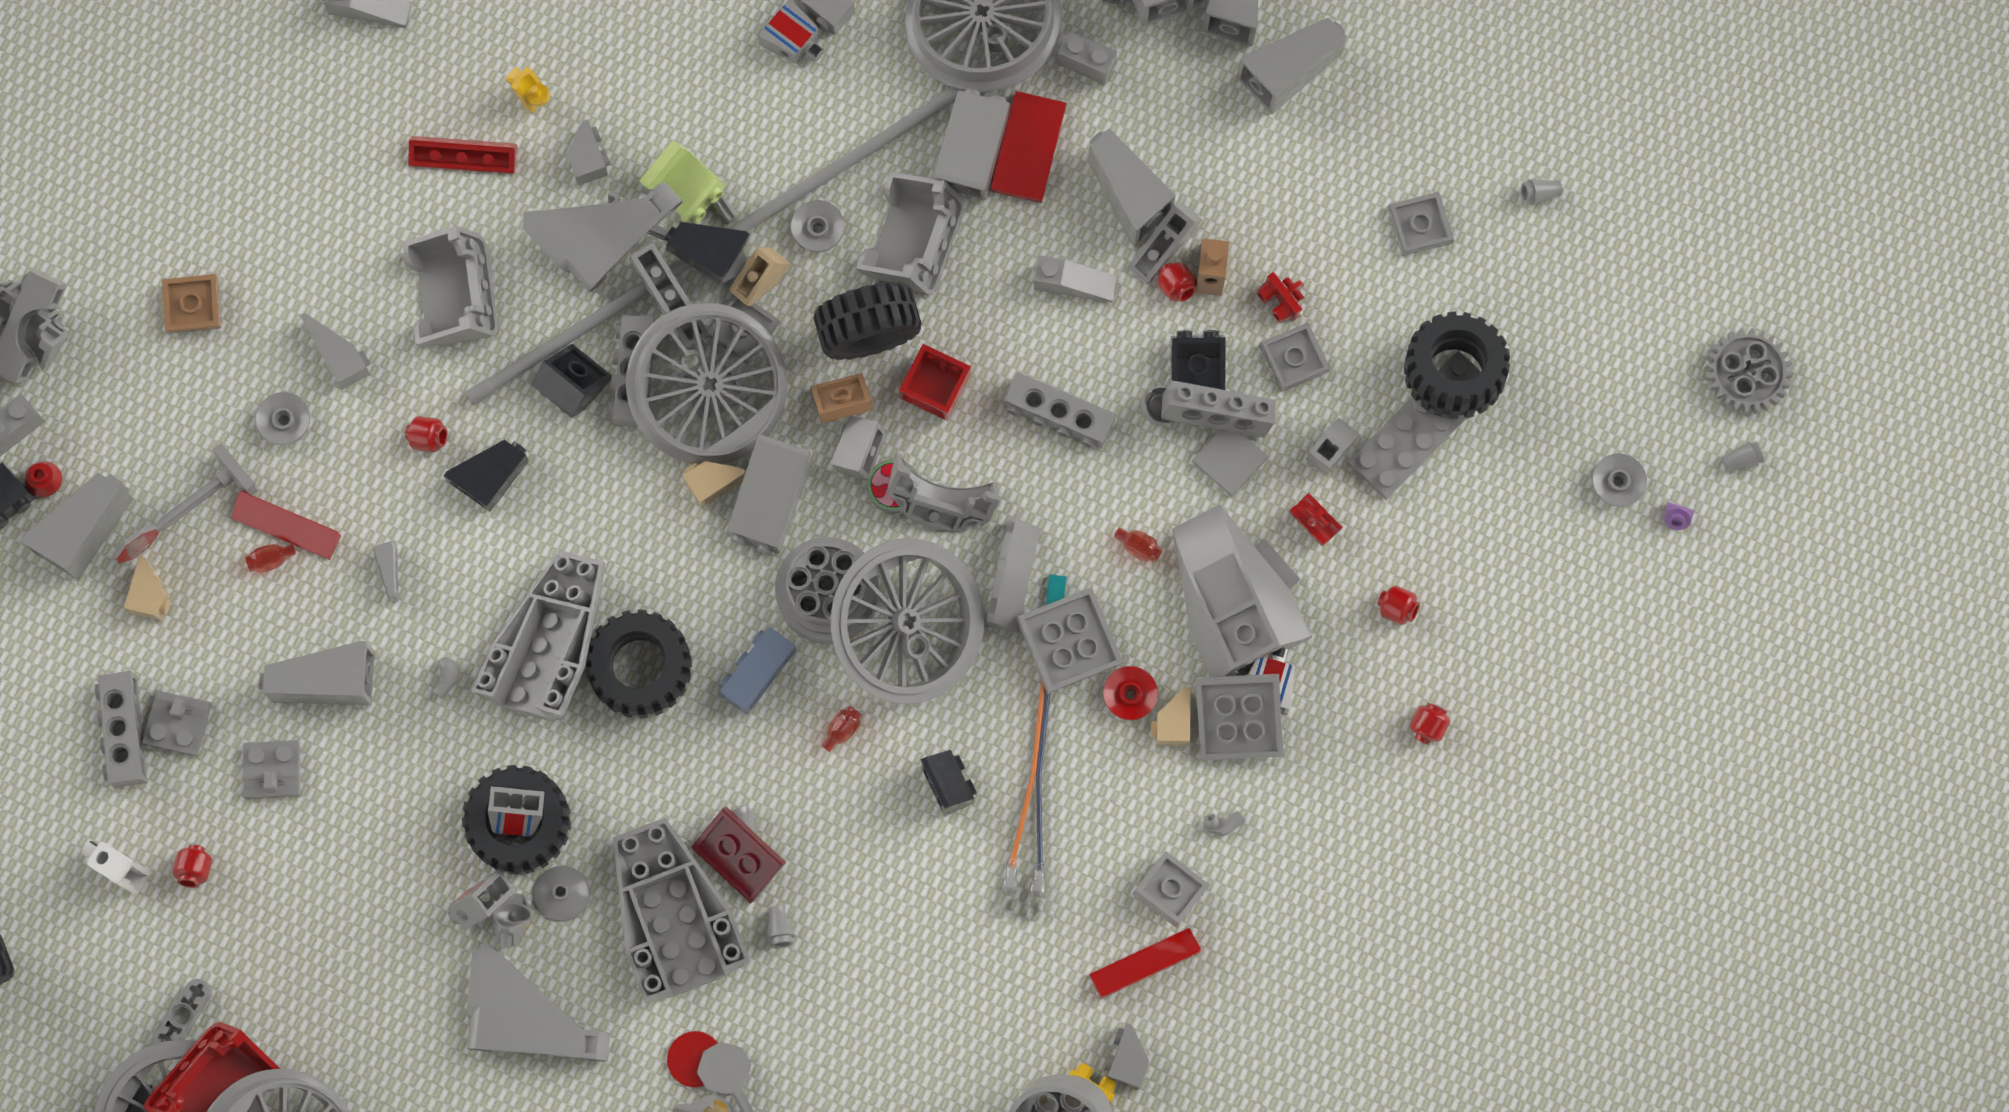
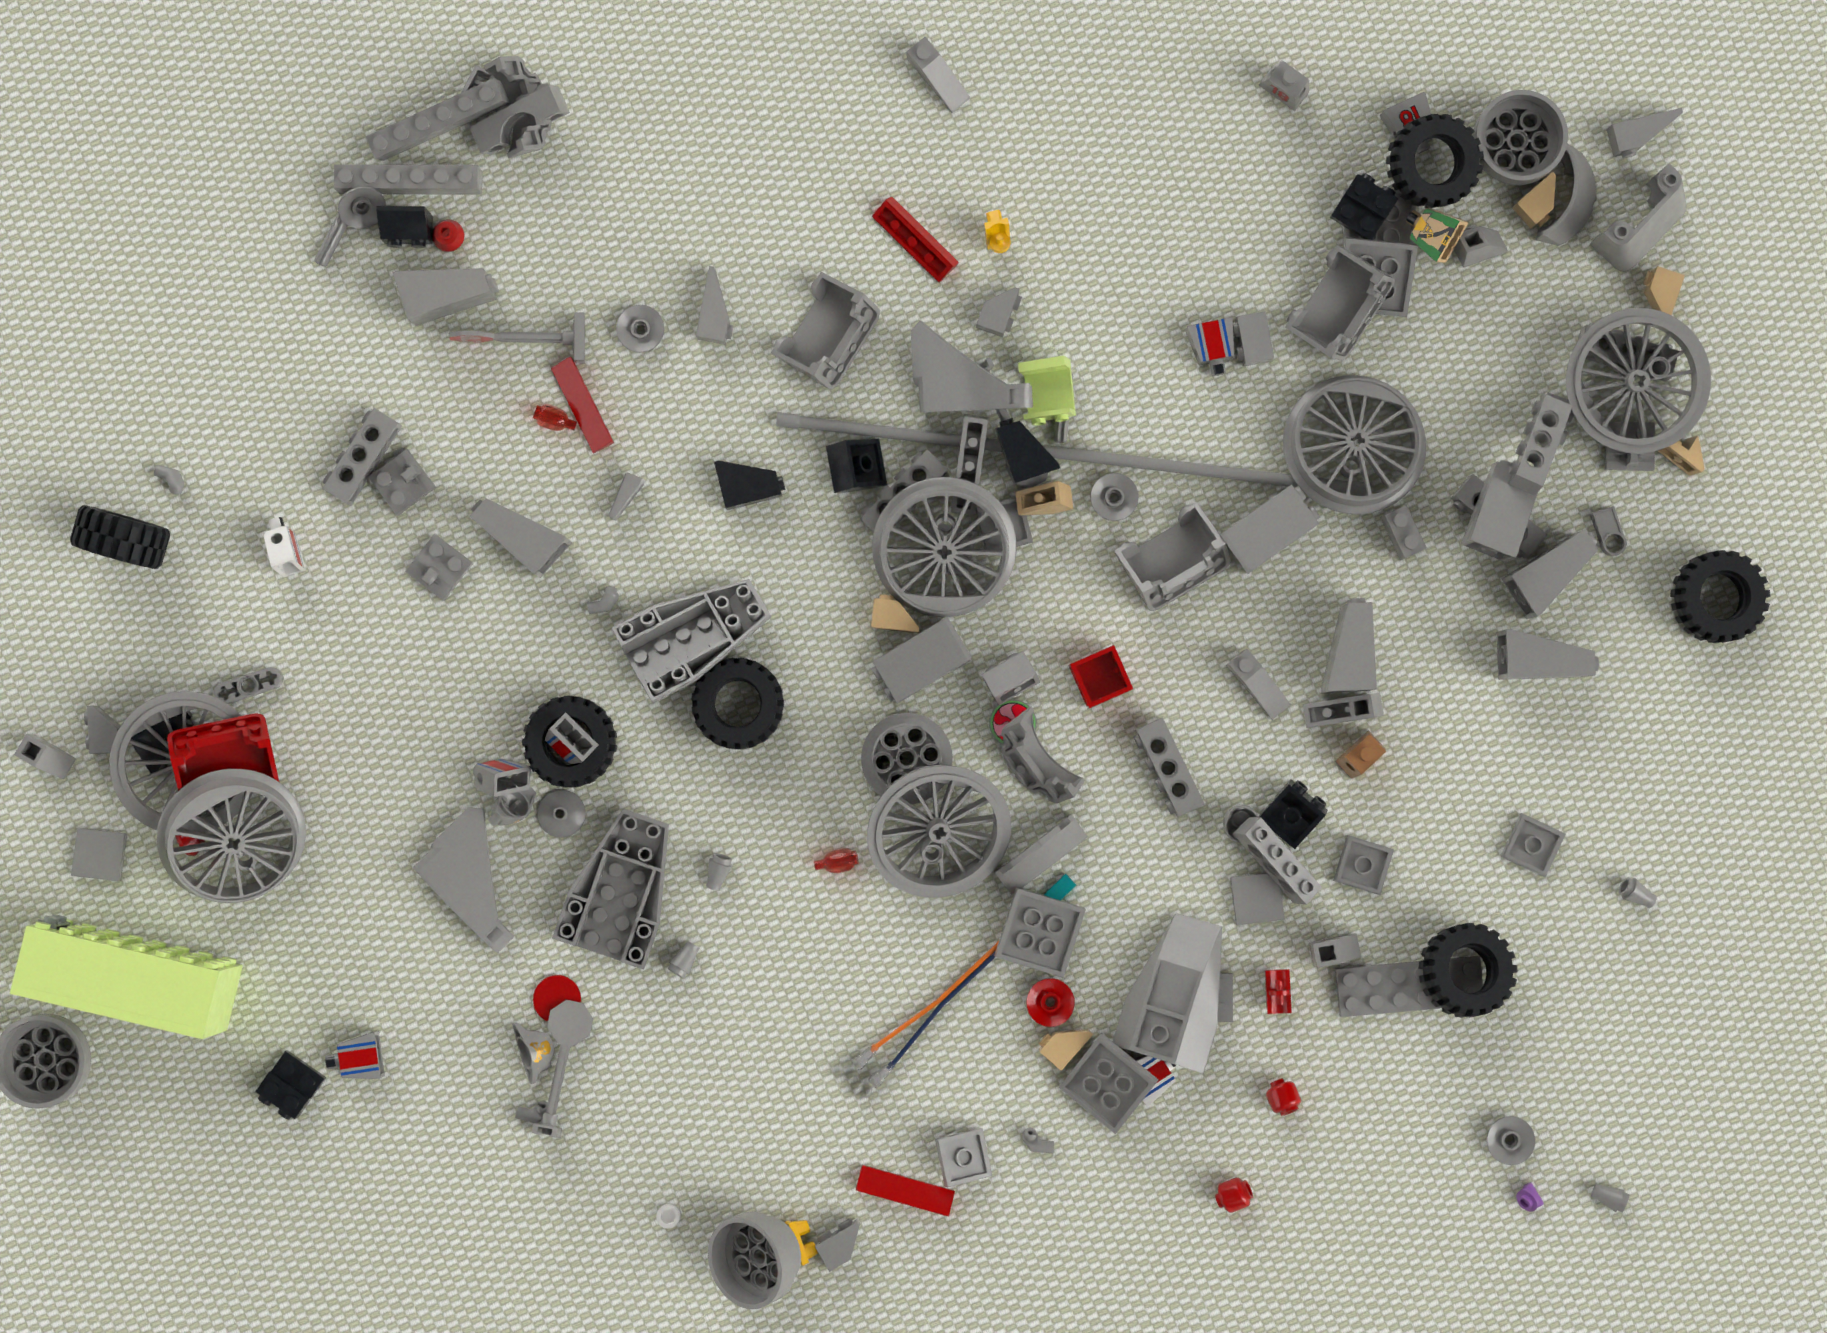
camera: 45 degrees right, 10 degrees up
(146, 593) = (453, 375): tan slope -> none
(191, 303) = (644, 193): medium nougat plate -> none
(192, 866) = (333, 590): red head -> none
(426, 434) = (727, 421): red head -> none
(738, 854) = (697, 889): tile -> none
(757, 670) = (813, 773): sand blue brick -> none
(842, 398) = (1028, 634): medium nougat plate -> none
(867, 320) = (1088, 598): black tyre -> none
(948, 782) = (876, 959): black slope -> none
(1028, 147) = (1308, 561): red tile -> none
(1139, 544) = (1144, 905): clear red plant -> none
(1177, 282) = (1327, 745): red head -> none
(1288, 305) = (1391, 806): red hips -> none
(1759, 391) = (1662, 1161): light grey gear -> none

